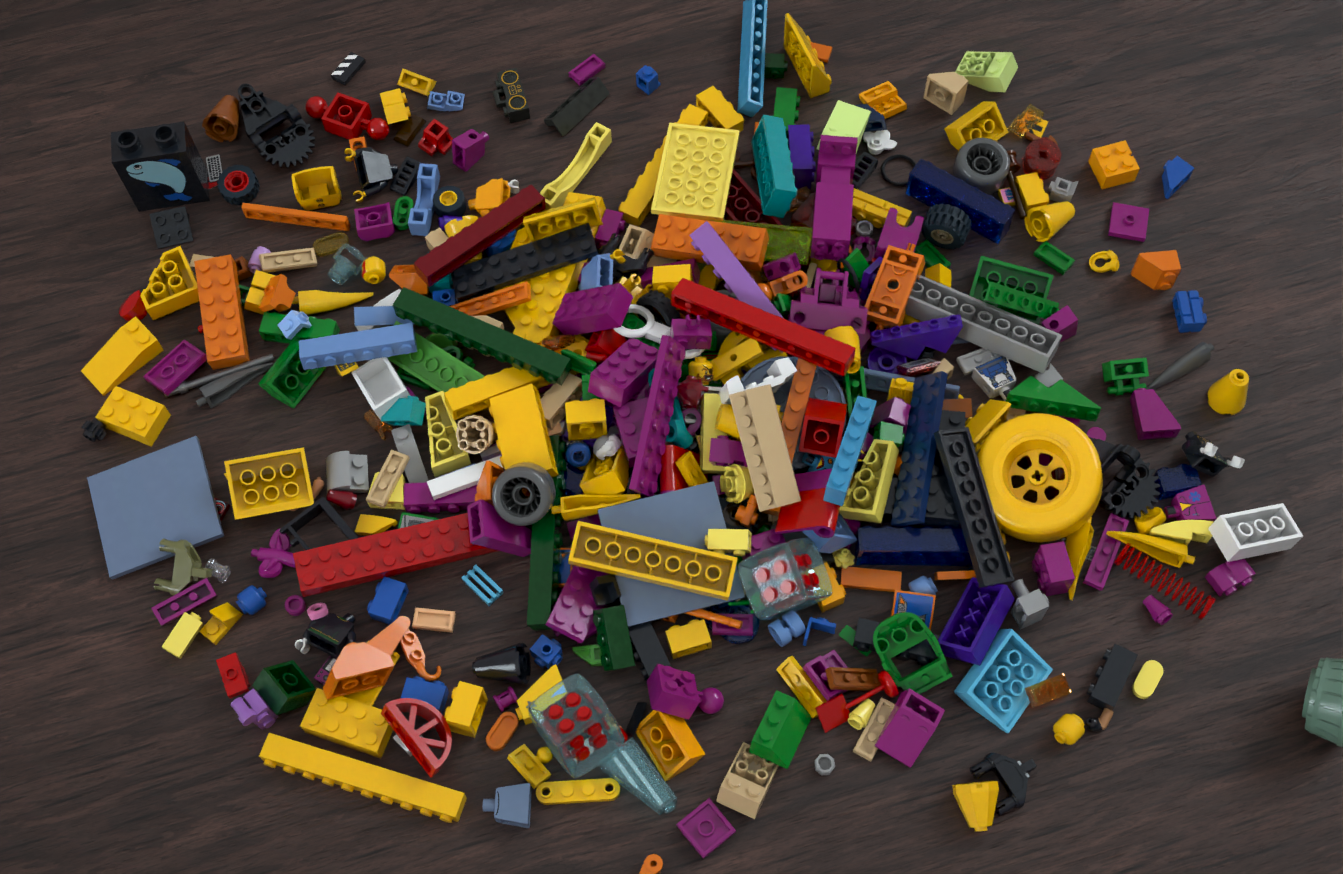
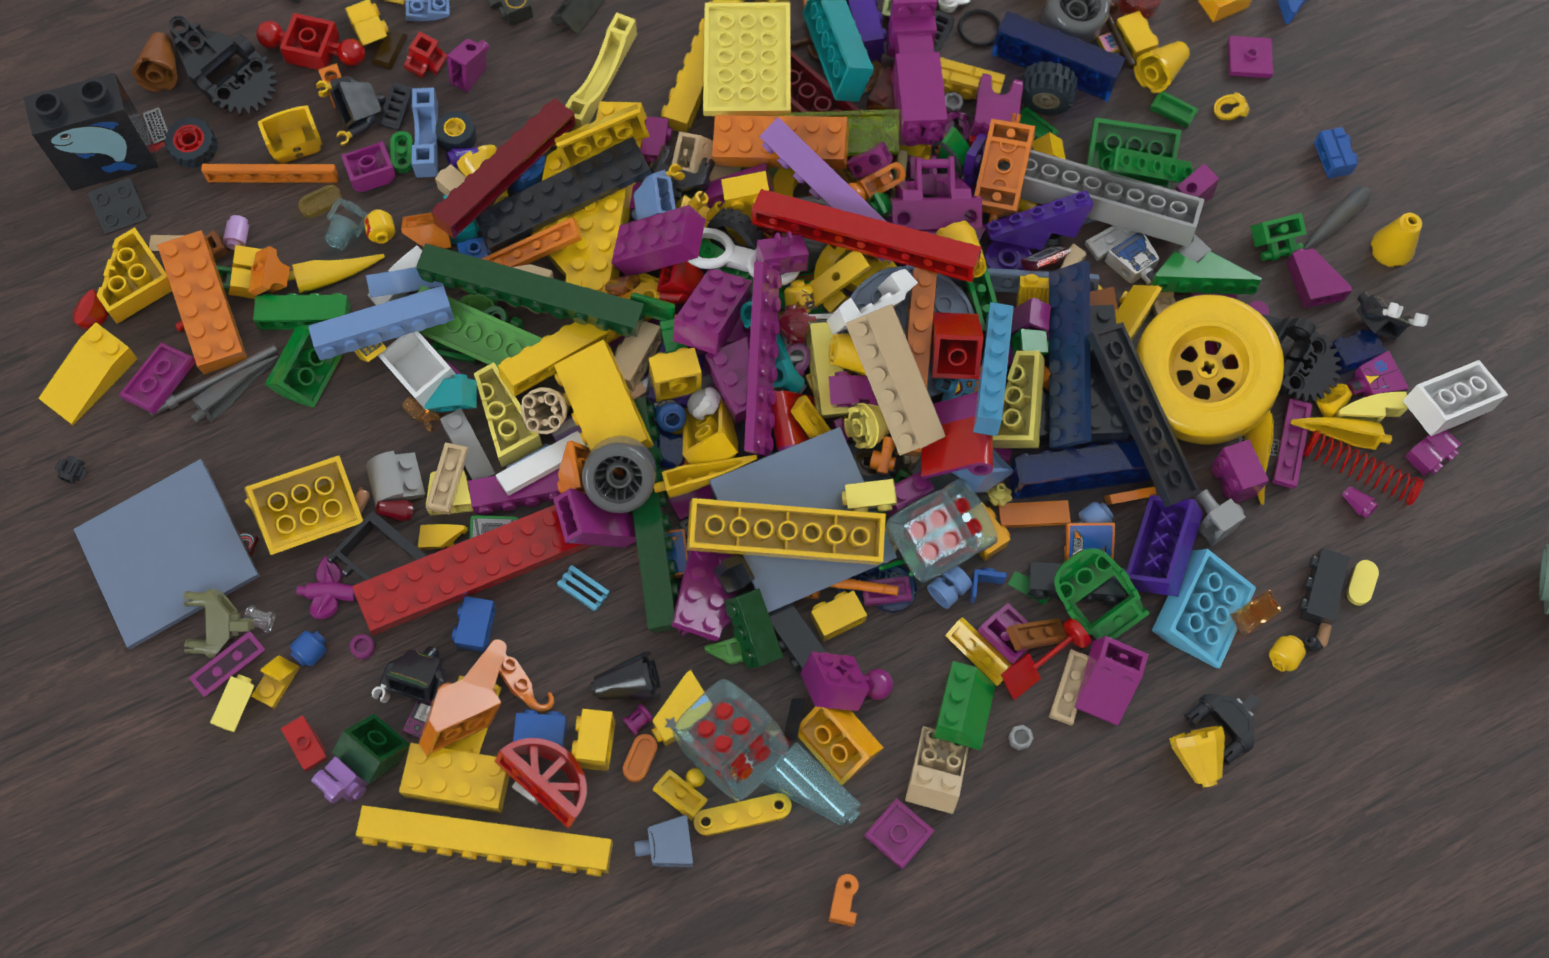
camera: 15 degrees left, 5 degrees up
(133, 416) = (117, 445): yellow brick -> none
(288, 260) = (271, 227): tan tile -> none
(293, 323) = (295, 305): light blue bracket -> none
(319, 613) = (395, 652): bright pink piece -> none
(433, 620) = (533, 638): light nougat tile -> none
(492, 195) = (507, 117): light orange torso -> none
(546, 652) = (676, 657): blue brick -> none
(861, 714) = (1052, 673): light yellow cone -> none
(1062, 190) = (1170, 28): light grey window -> none
(1157, 269) = (1294, 108): orange slope -> none

